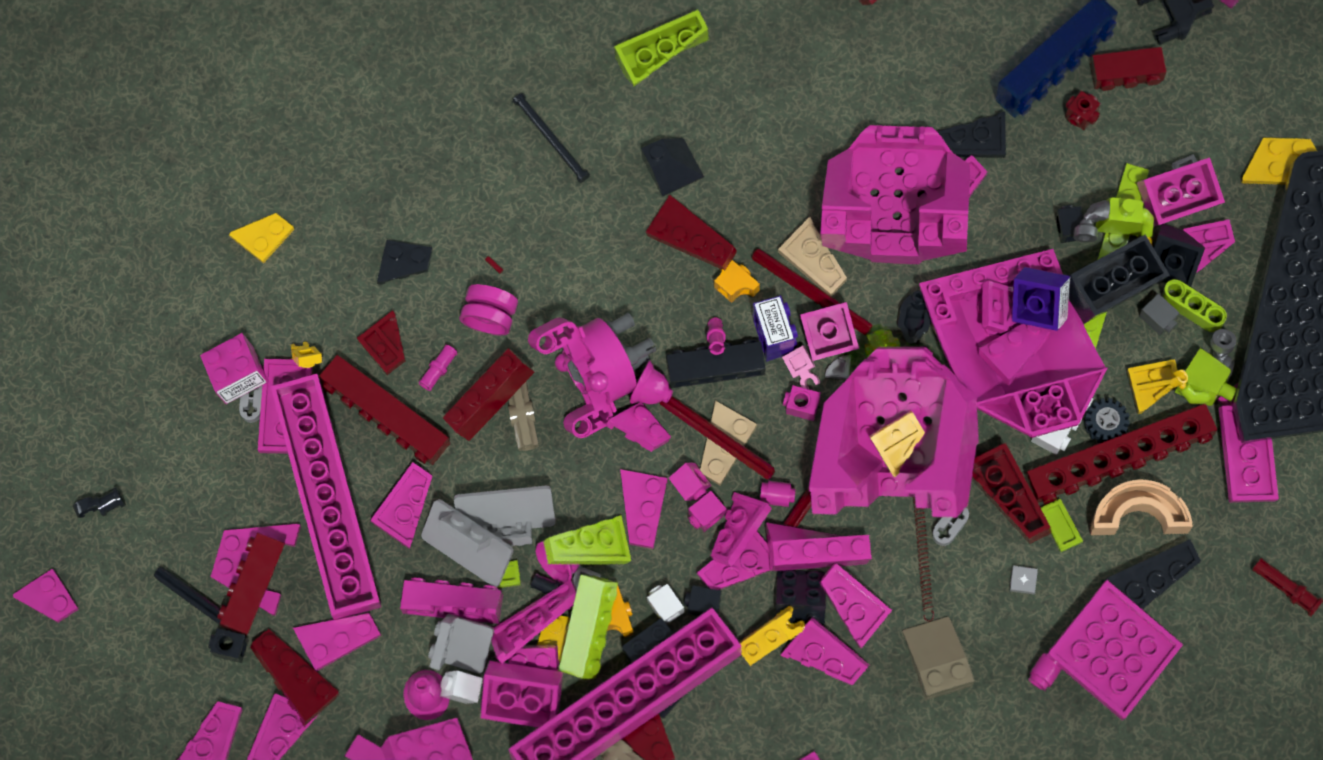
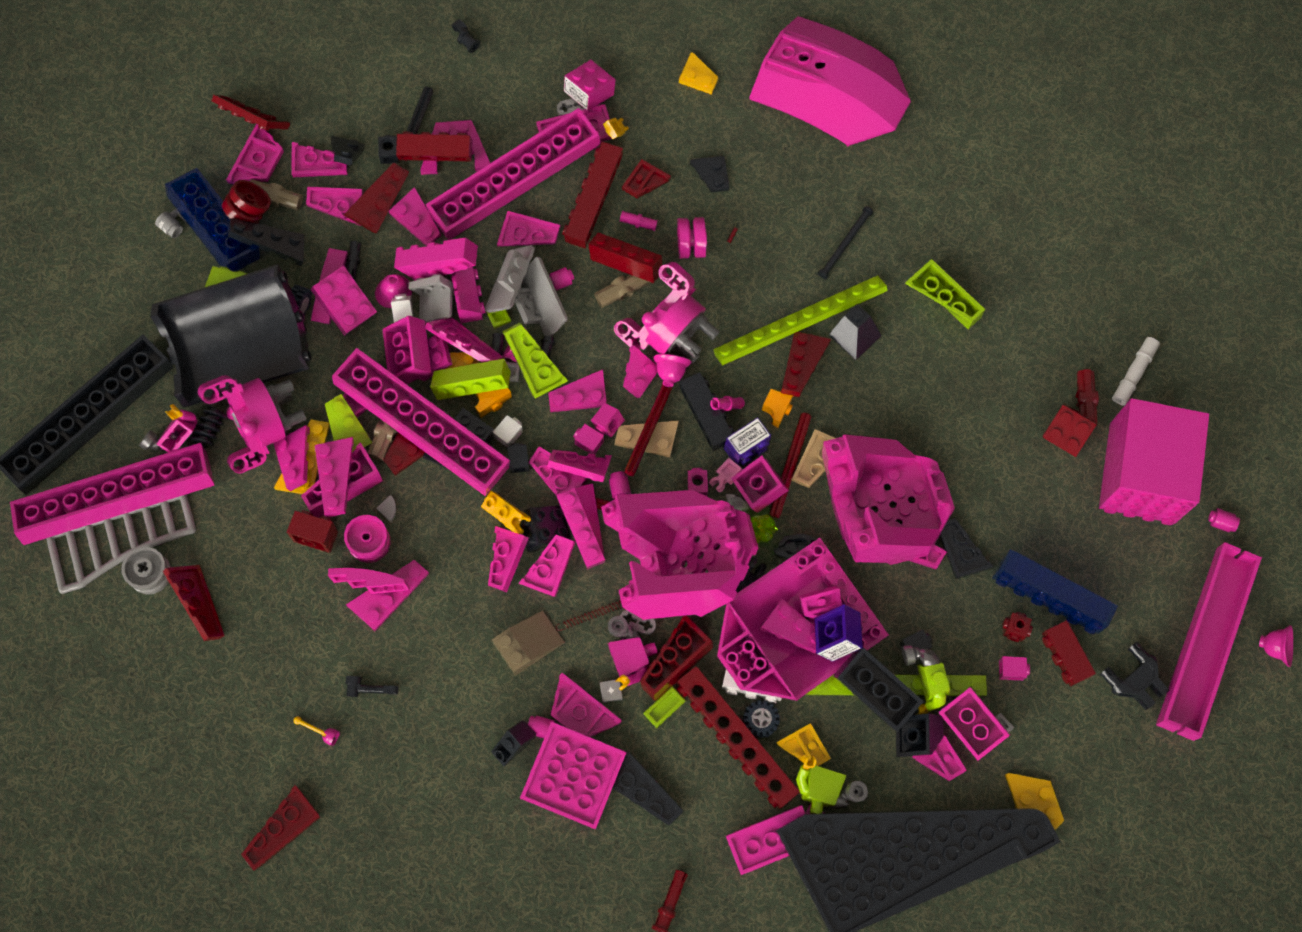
camera: 65 degrees right, 0 degrees up
(48, 597) = (390, 27): dark pink wing -> none
(210, 700) = (346, 150): none -> black wing
(366, 731) = (353, 258): none -> black pin
(368, 70) = (849, 98): none -> dark pink wedge
(416, 620) = (436, 258): none -> dark pink wedge
(483, 479) = (561, 278): none -> dark pink brick
(564, 525) = (547, 344): none -> black pin
(634, 222) = (800, 320): none -> lime plate
(897, 441) = (679, 553): yellow wing -> none
(990, 544) = (629, 653): none -> dark pink torso
(1037, 622) = (579, 710): none -> dark pink wing
(1056, 708) = (513, 742): none -> black slope
(1128, 131) = (1013, 668): none -> dark pink brick
(1144, 497) = (704, 757): light nougat brick -> none
(1160, 315) = (864, 737): dark grey brick -> none
(1206, 306) = (886, 753): lime beam -> none

